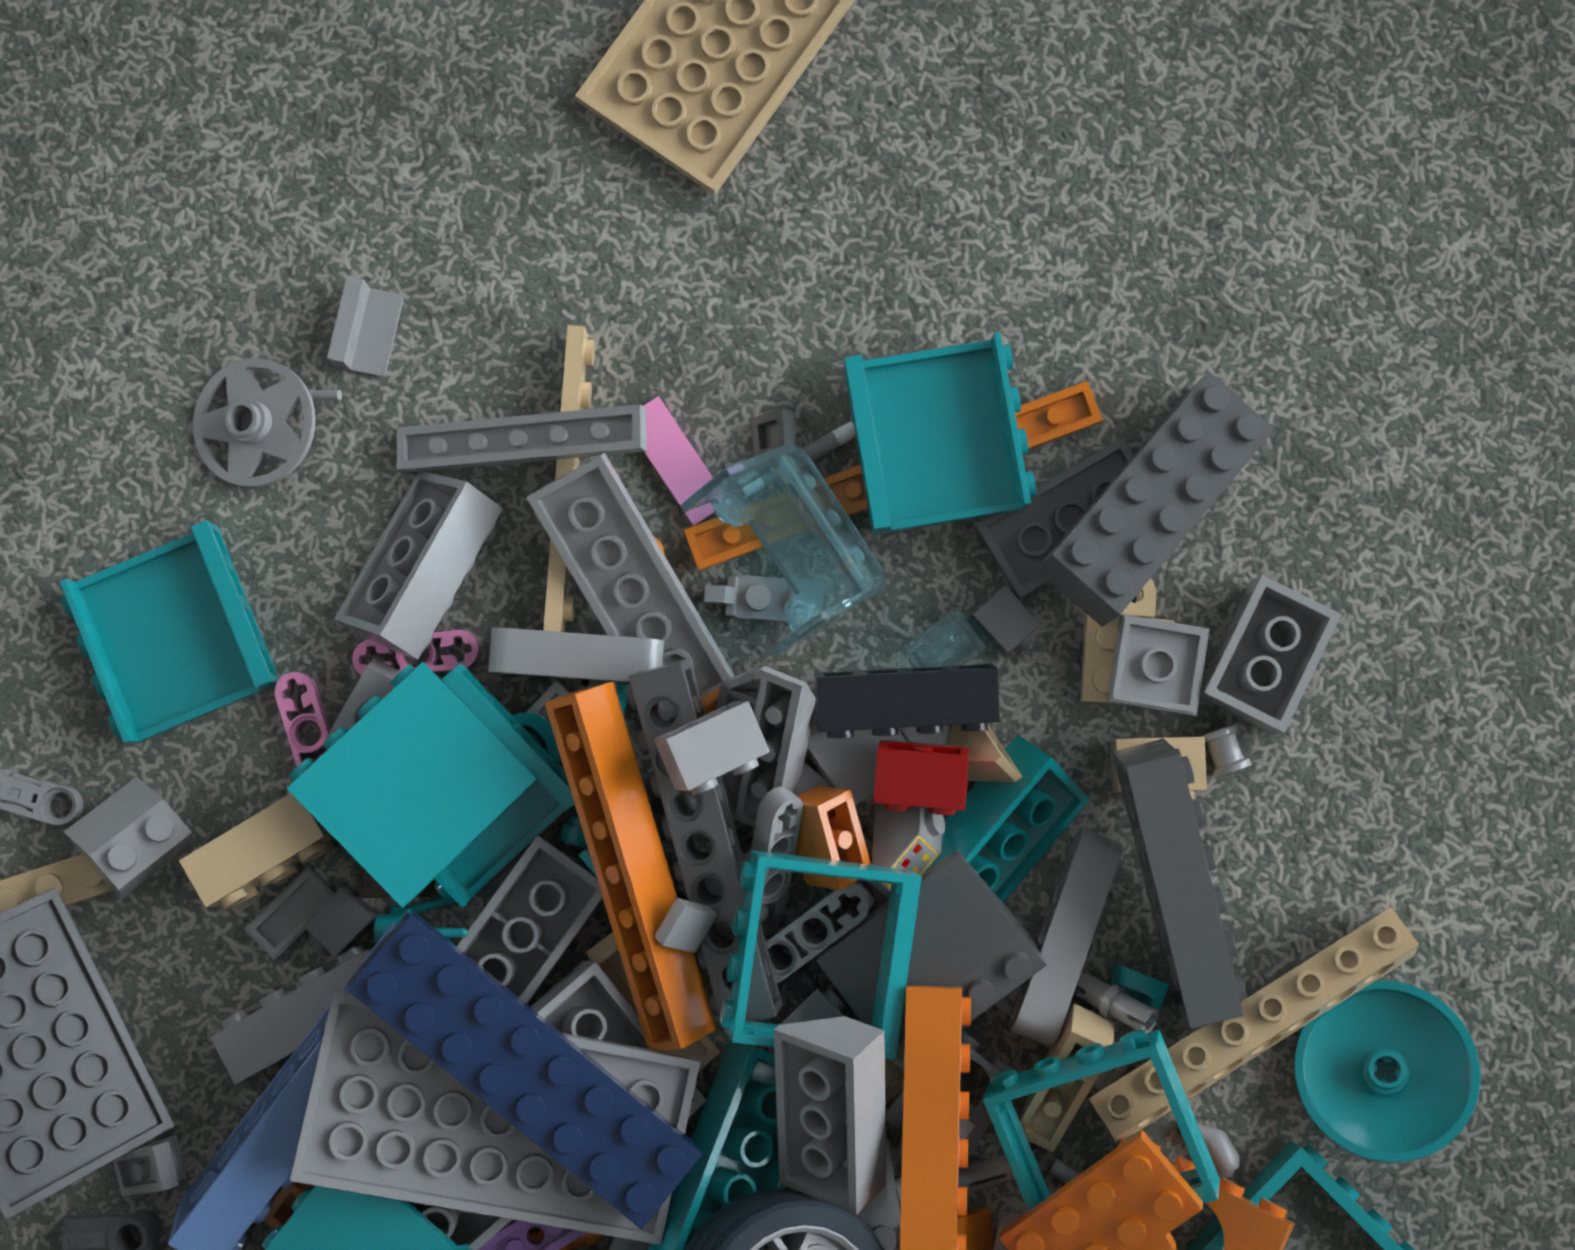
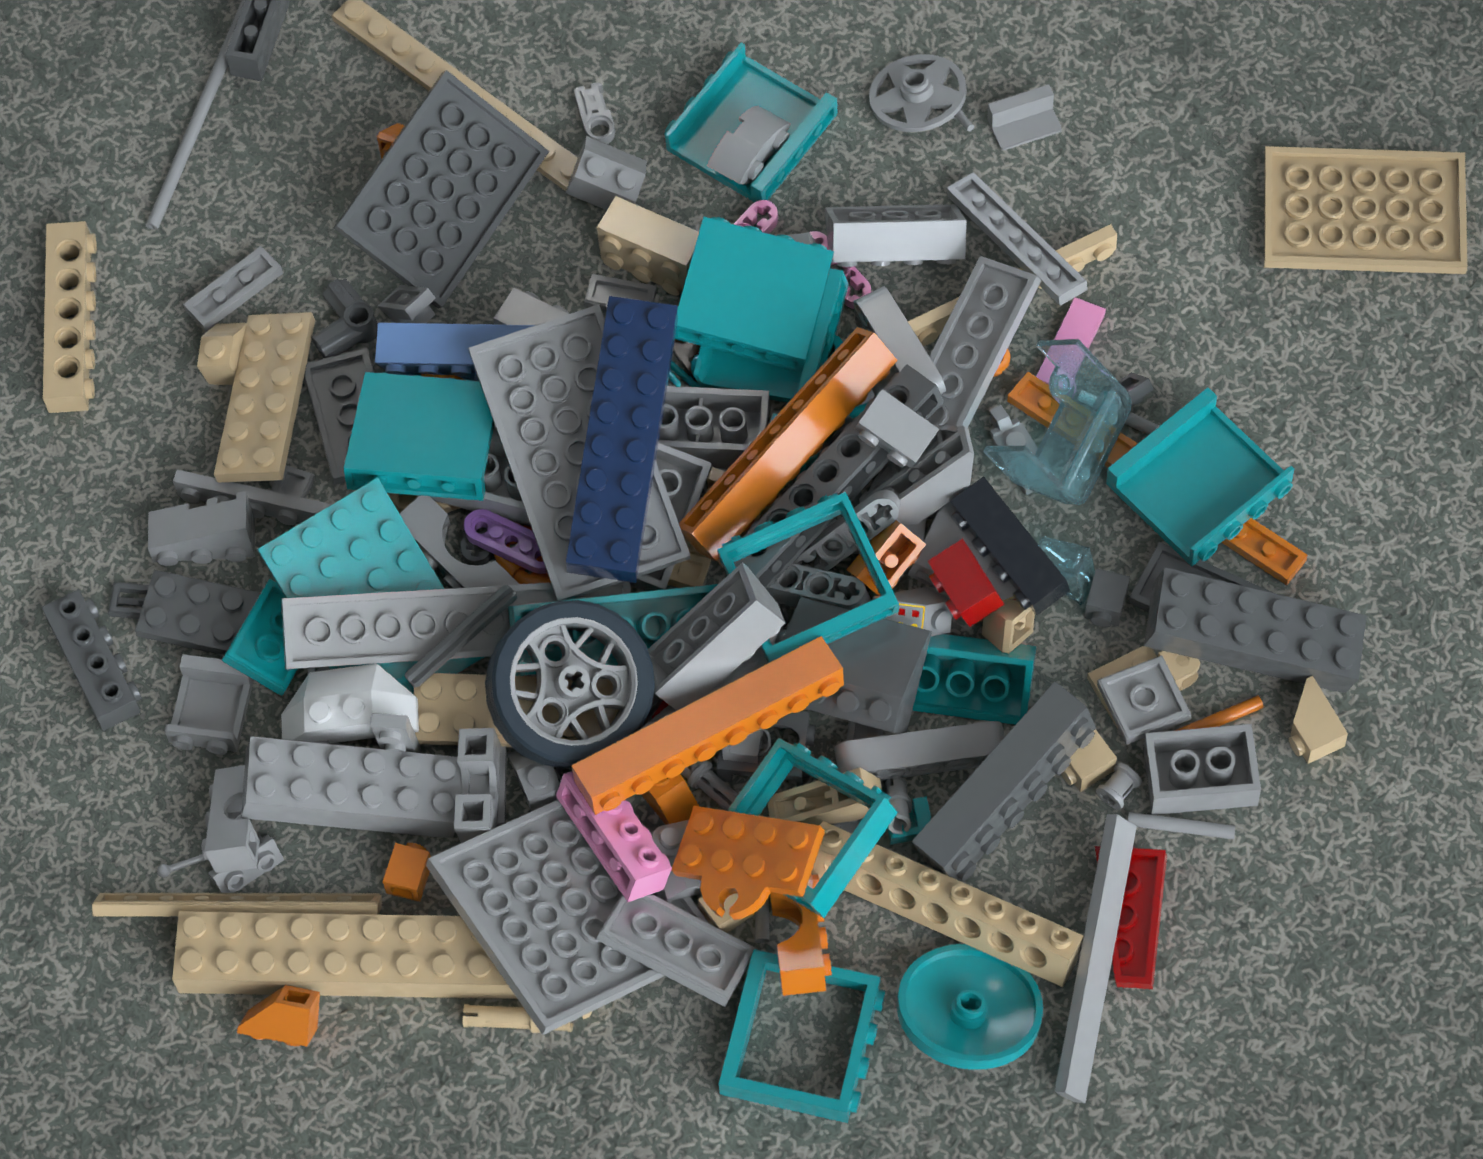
camera: 65 degrees right, 20 degrees down
(208, 670) = (743, 153): none -> light grey brick
(685, 925) = (772, 490): light grey tile -> none
(1208, 587) = (1227, 715): none -> orange bar
(1221, 1150) = (846, 934): light grey arm -> none
(1282, 503) = (1316, 726): none -> tan slope
(1304, 710) = (1182, 825): none -> light grey bar
(1359, 819) = (1139, 919): none -> red wing
(1412, 905) = (1095, 959): none -> light grey tile

